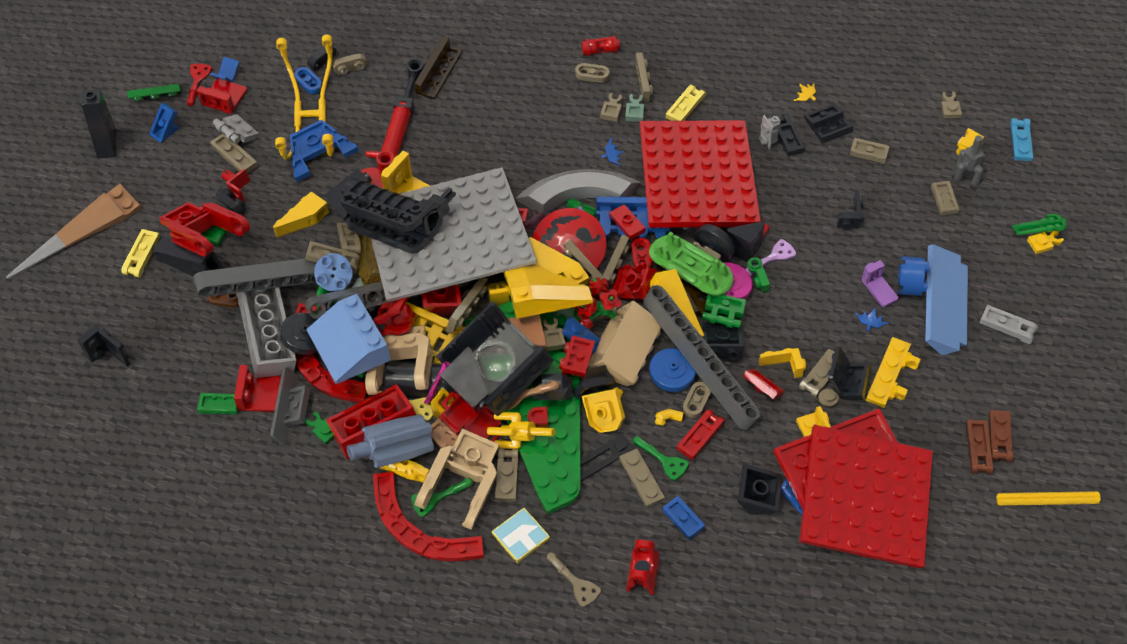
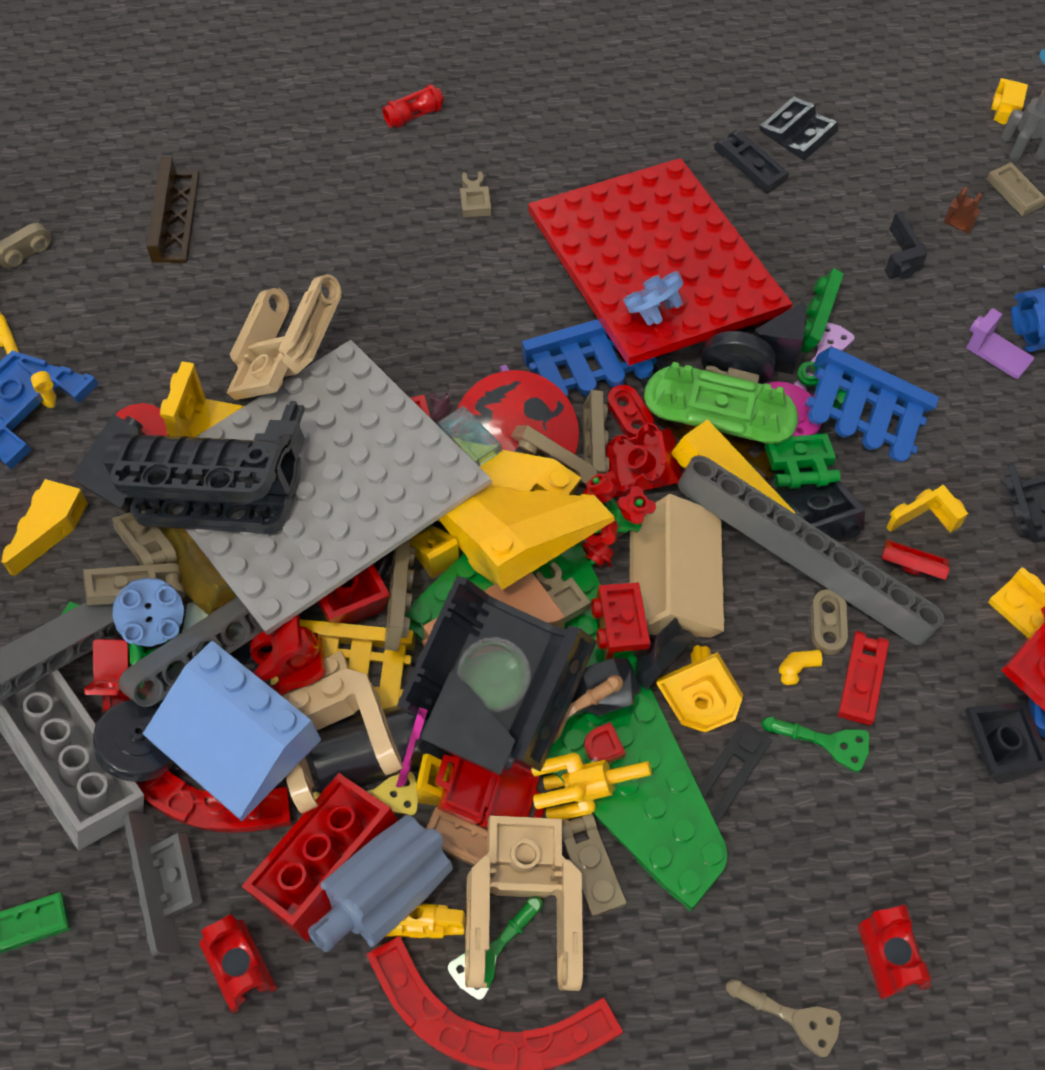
camera: 25 degrees left, 5 degrees up
(256, 393) = (91, 877): red bracket -> none
(305, 291) = (109, 662): none -> red bracket
(308, 451) = (234, 960): none -> red piece
(321, 428) = (235, 900): green plate -> none
(402, 113) = (145, 315): red piece -> none
(464, 156) = (267, 359): none -> tan plate
(520, 535) = (664, 967): tile -> none
(539, 237) = (470, 435): none -> clear light blue plate
(572, 203) = (492, 365): green piece -> none
(574, 328) = (593, 572): blue plate -> none
(576, 185) = (474, 332): light grey brick -> none
(593, 72) = (419, 150): dark tan plate -> none
(612, 153) = (506, 266): blue piece -> none
(627, 222) = (588, 367): red plate -> none
(634, 109) = (510, 189): sand green plate -> none
(641, 478) = (808, 786): dark tan plate -> none
(643, 77) = (500, 135): dark tan plate -> none
(671, 370) = (768, 587): blue wheel -> none
(680, 188) = (654, 292): none -> medium blue plate
(683, 518) = (909, 832): blue plate -> none
(685, 104) = (581, 159): light yellow plate -> none
(768, 242) = (820, 308): none -> green plate
(769, 131) = (728, 162): light grey hinge -> none
(779, 276) = (870, 384): none -> blue fence
(806, 93) = (746, 93): yellow piece -> none
(818, 375) = (987, 511): dark tan plate -> none
(828, 397) = (1017, 547): dark tan plate -> none
(869, 150) = (878, 151): dark tan plate -> none
(871, 320) = (1011, 404): blue piece -> none
(899, 201) = (963, 212): none -> copper plate
(949, 107) = (952, 59): dark tan plate -> none

